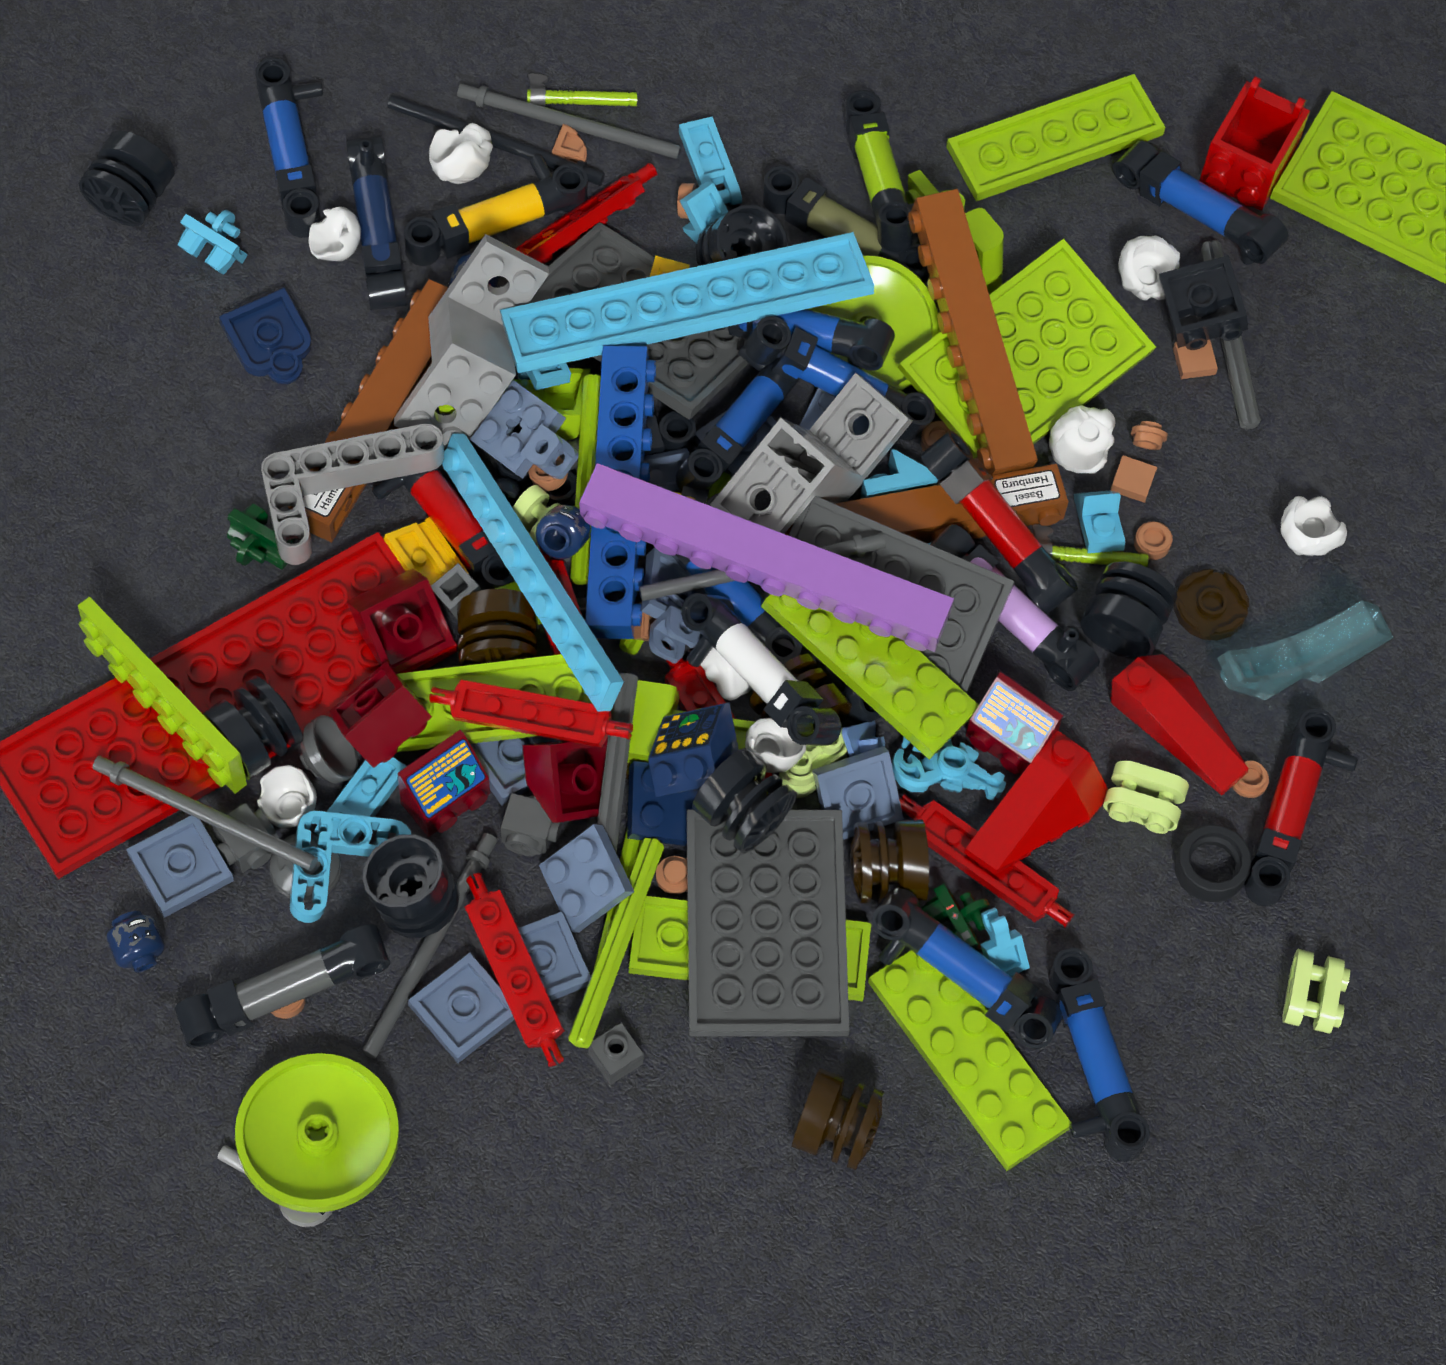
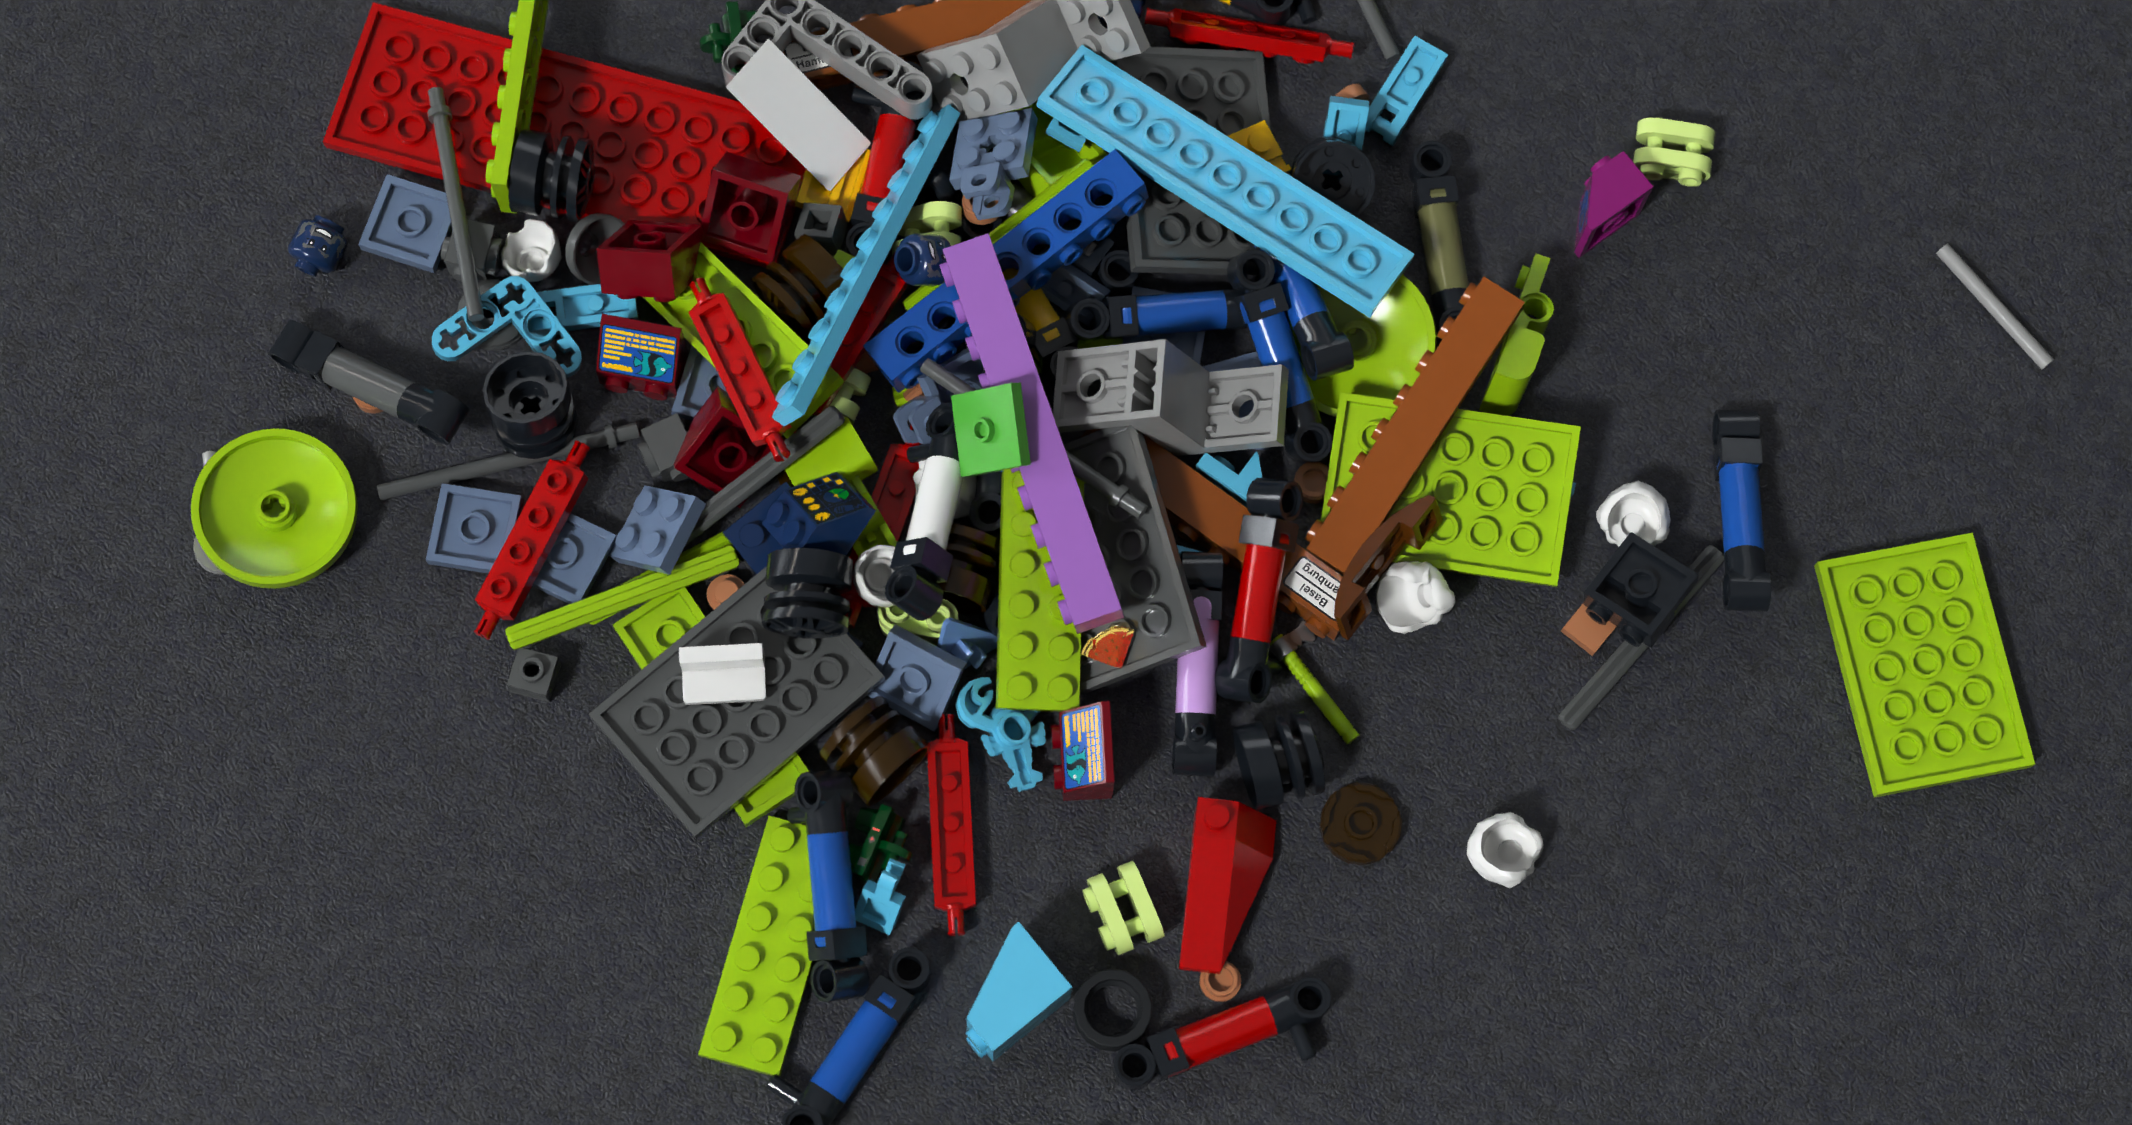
camera: 50 degrees right, 10 degrees up
(365, 532) = (798, 115): none -> white sticker
(743, 577) = (990, 430): none -> bright green plate
(745, 912) = (723, 673): none -> white panel
(838, 1119) = (617, 896): dark brown wheel -> none
(871, 146) = (1535, 206): black piece -> none
(908, 45) = (1674, 150): none -> yellowish green brick
(910, 105) = (1610, 200): none -> magenta slope
(954, 646) = (1109, 646): none -> tile
(1037, 399) = (1408, 526): none -> reddish brown slope
(1048, 799) = (1045, 831): red wedge -> none
(1055, 137) = (1701, 342): lime plate -> none
(1100, 521) = (1352, 670): medium azure slope -> none
(1133, 478) = (1422, 667): nougat tile -> none
(1149, 435) = (1473, 647): nougat plate -> none
(1152, 911) = (1015, 996): none -> medium azure slope
(1153, 539) = (1378, 729): nougat tile -> none
(1254, 145) = (1842, 509): red container -> none
(1307, 655) = (1367, 936): clear light blue arch -> none

